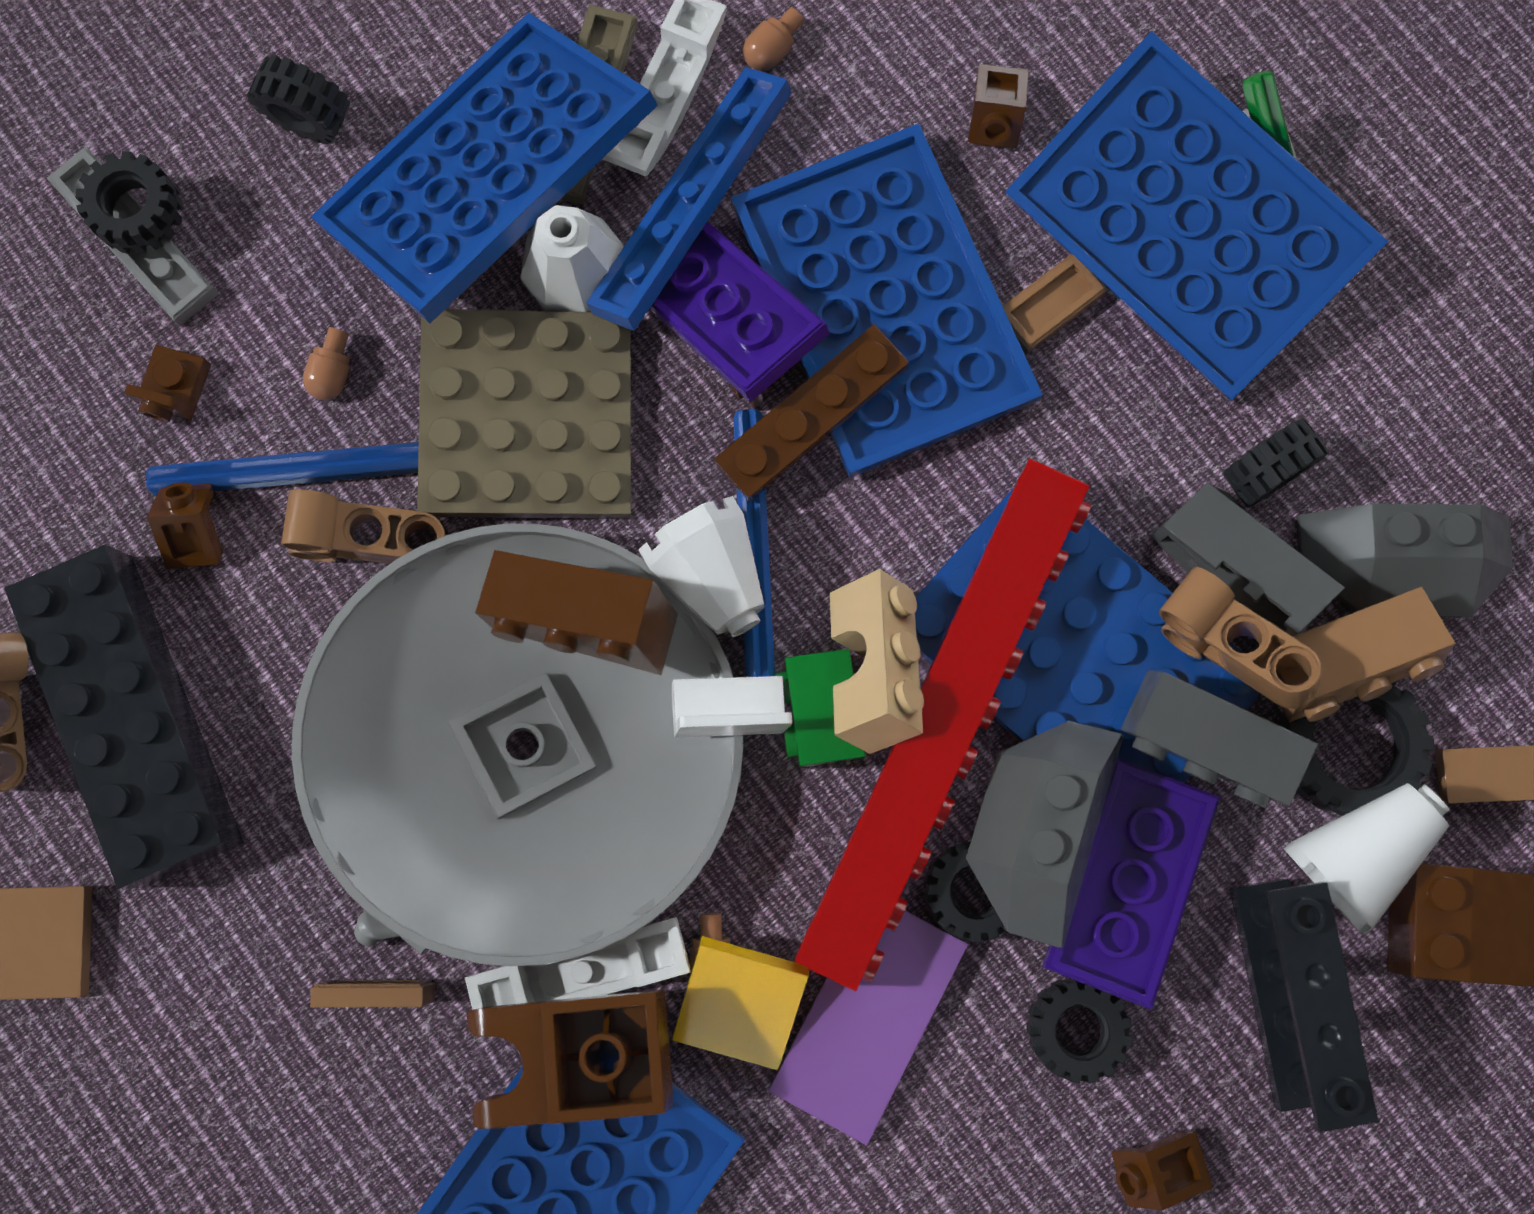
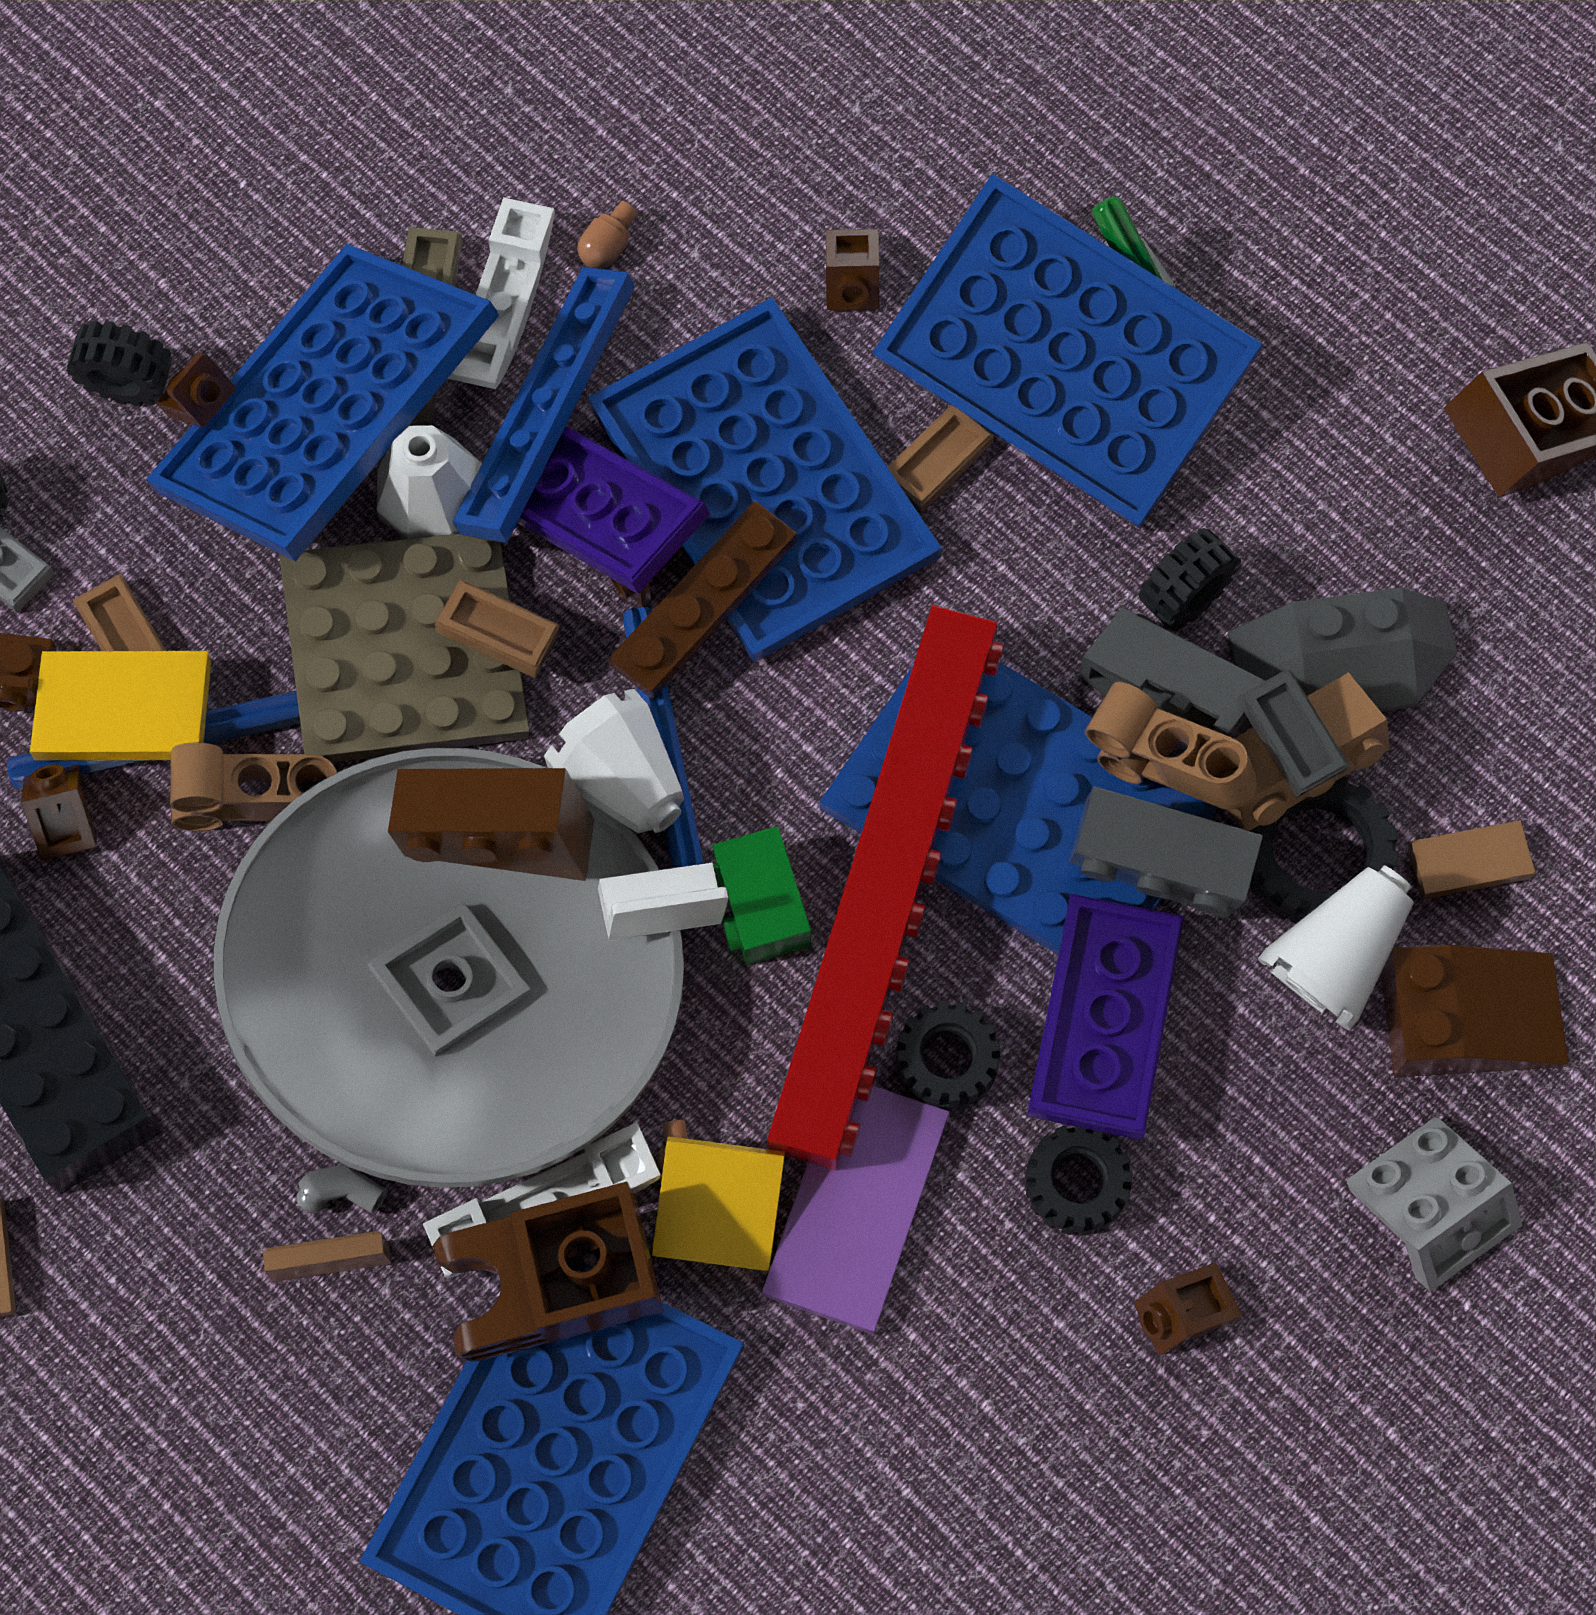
camera: 10 degrees left, 10 degrees down
(255, 433) = (119, 704): none -> yellow tile
(271, 360) = (117, 618): none -> medium nougat tile
(327, 367) = (185, 627): nougat cylinder -> none
(367, 137) = (196, 392): none -> reddish brown bracket
(614, 412) = (497, 628): none -> medium nougat tile
(884, 696) = (806, 800): tan arch -> none
(1042, 827) = (1004, 973): dark grey wedge -> none
(1303, 1002) = (1295, 1099): black fence -> none
(1363, 645) = (1293, 732): none -> dark grey tile
(1421, 1103) = (1438, 1200): none -> light grey bracket

